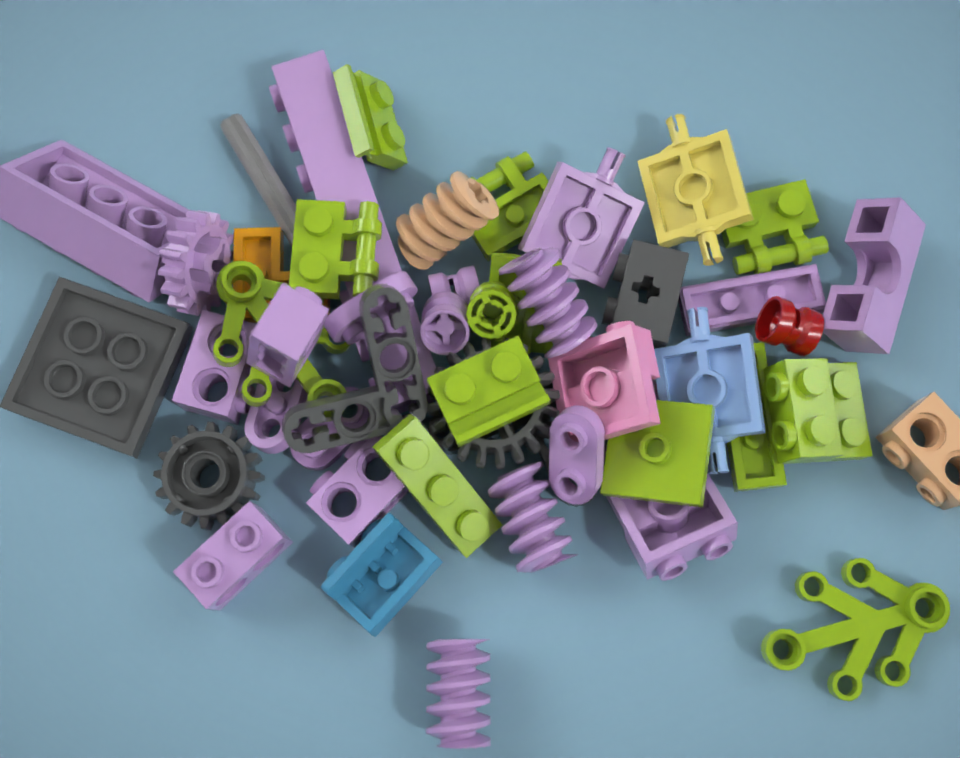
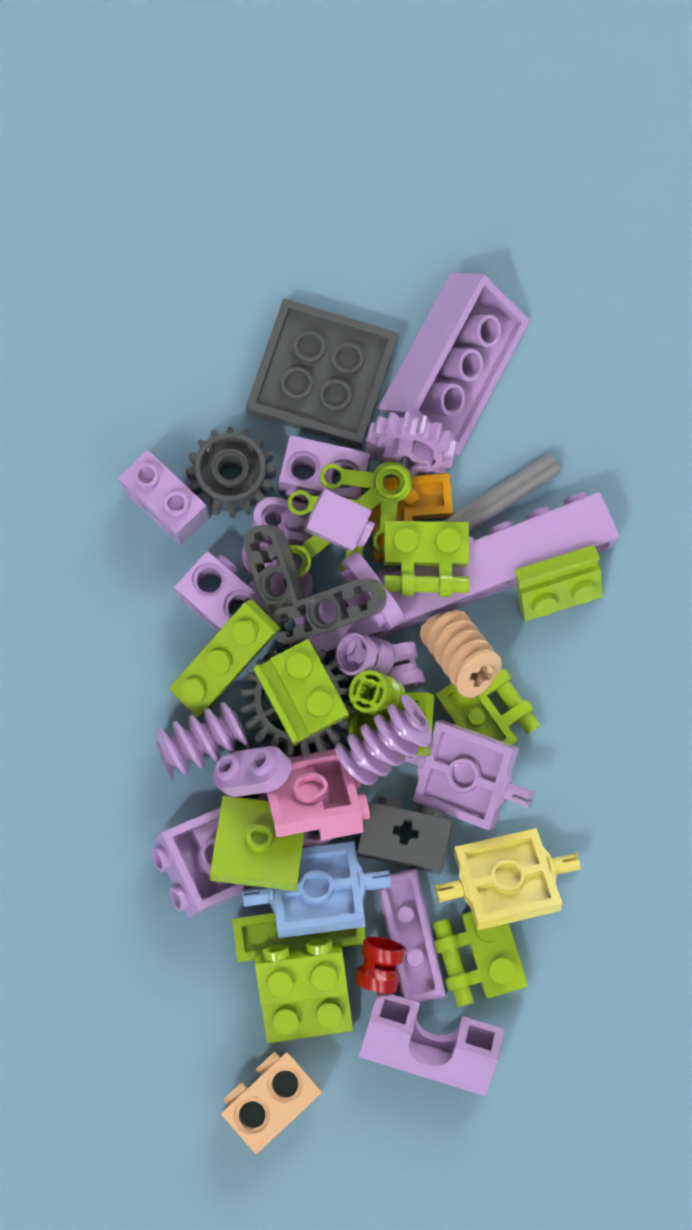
camera: 85 degrees right, 0 degrees up
(380, 573) = (153, 618): dark azure bracket -> none
(458, 693) = (56, 686): lavender piece -> none
(864, 625) = (119, 1032): lime plant -> none

